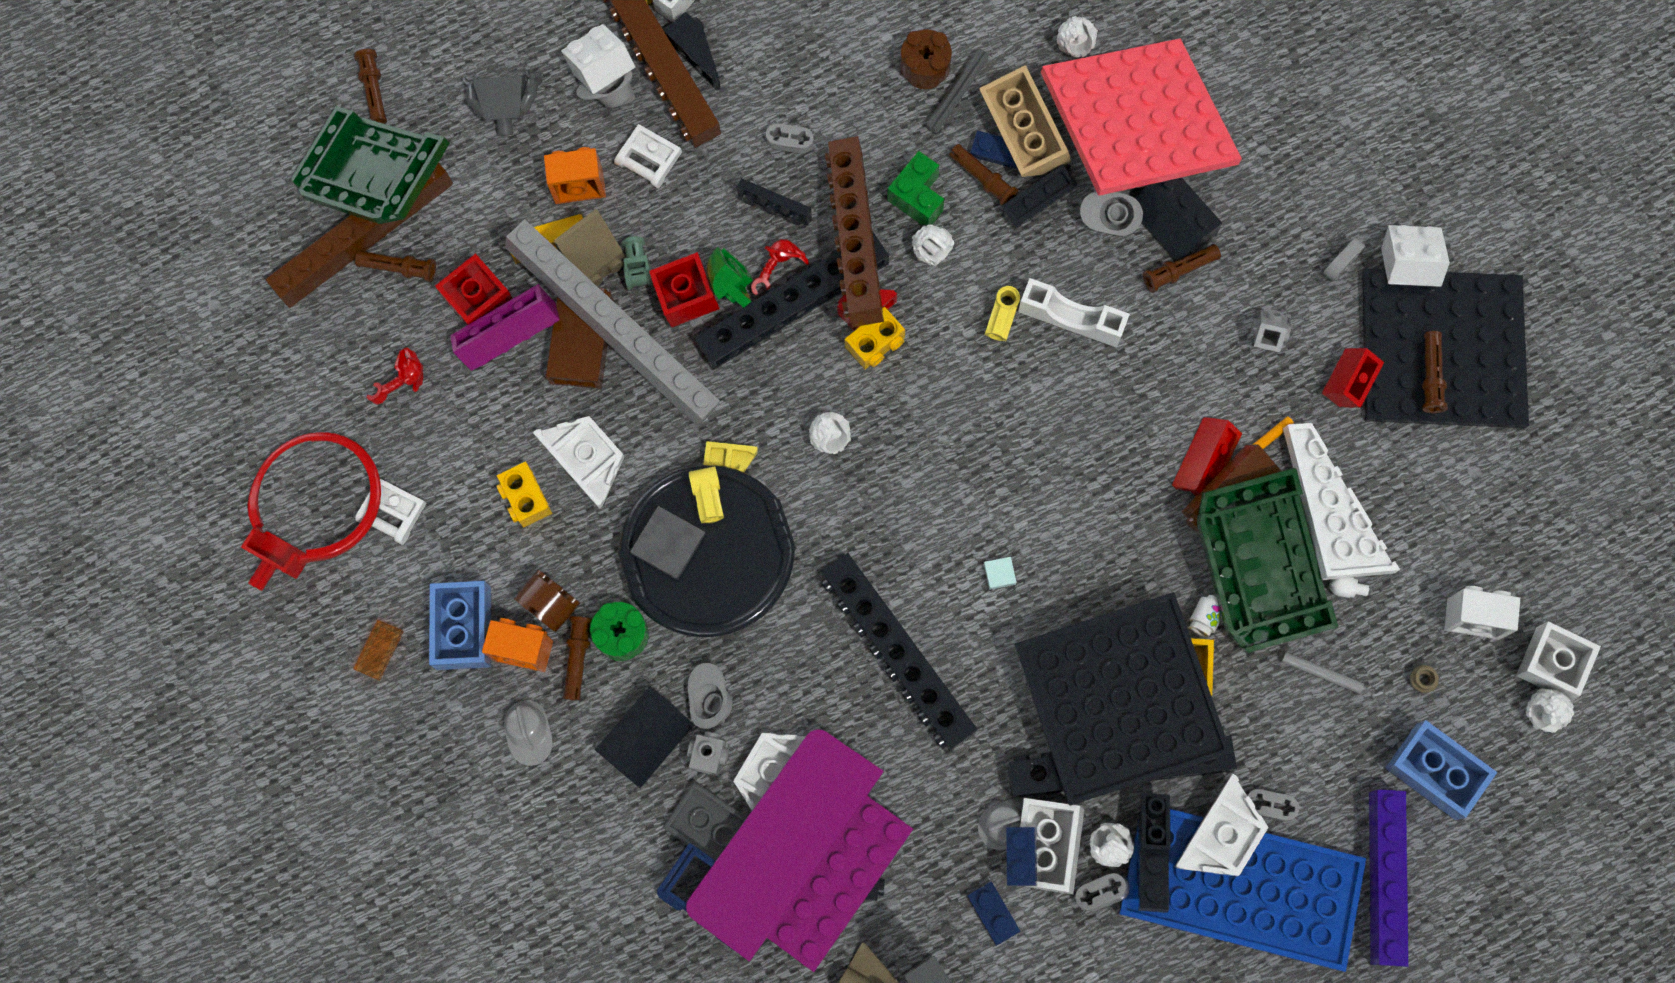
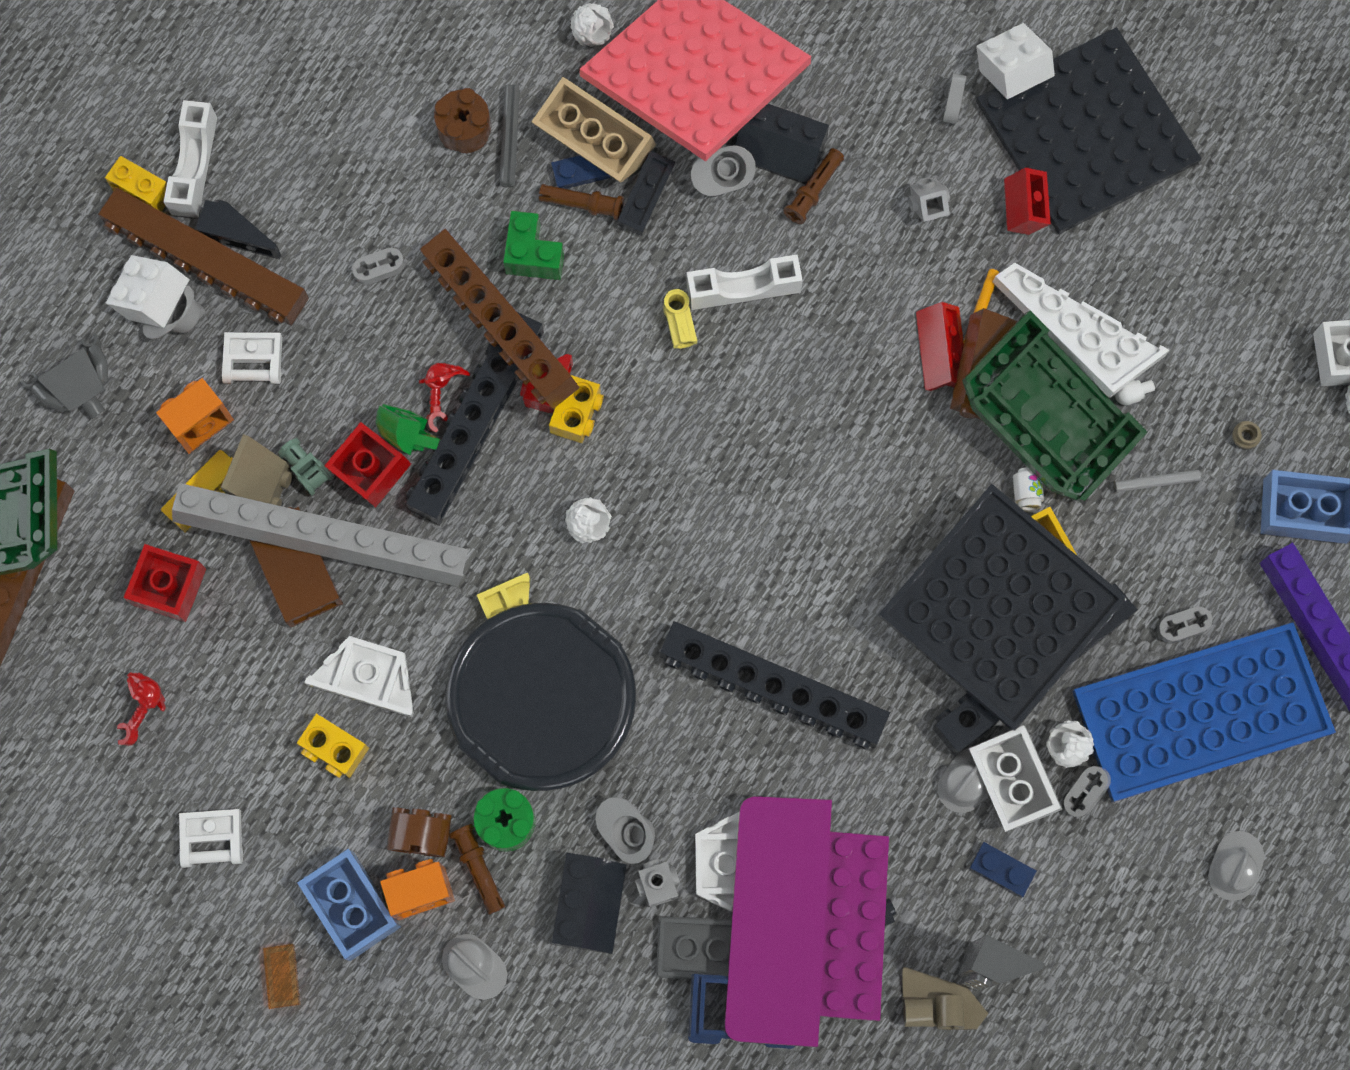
camera: 35 degrees left, 0 degrees up
(282, 555) = (129, 943): red brick -> none
(408, 267) = (80, 592): reddish brown pin -> none
(504, 327) = (217, 598): magenta brick -> none
(668, 543) = (502, 710): flat silver tile -> none
(705, 488) = (506, 636): light yellow piece -> none
(774, 203) = (401, 335): black plate -> none
(932, 244) = (575, 291): white piece -> none
(1000, 573) = (821, 559): light aqua tile -> none
(1021, 856) = (1000, 802): dark blue plate -> none
(1153, 853) = (1111, 729): black slope -> none
(1225, 834) = (1162, 673): white wing -> none
(1434, 384) = (1100, 166): reddish brown pin -> none
(1482, 613) = (1263, 347): white brick -> none

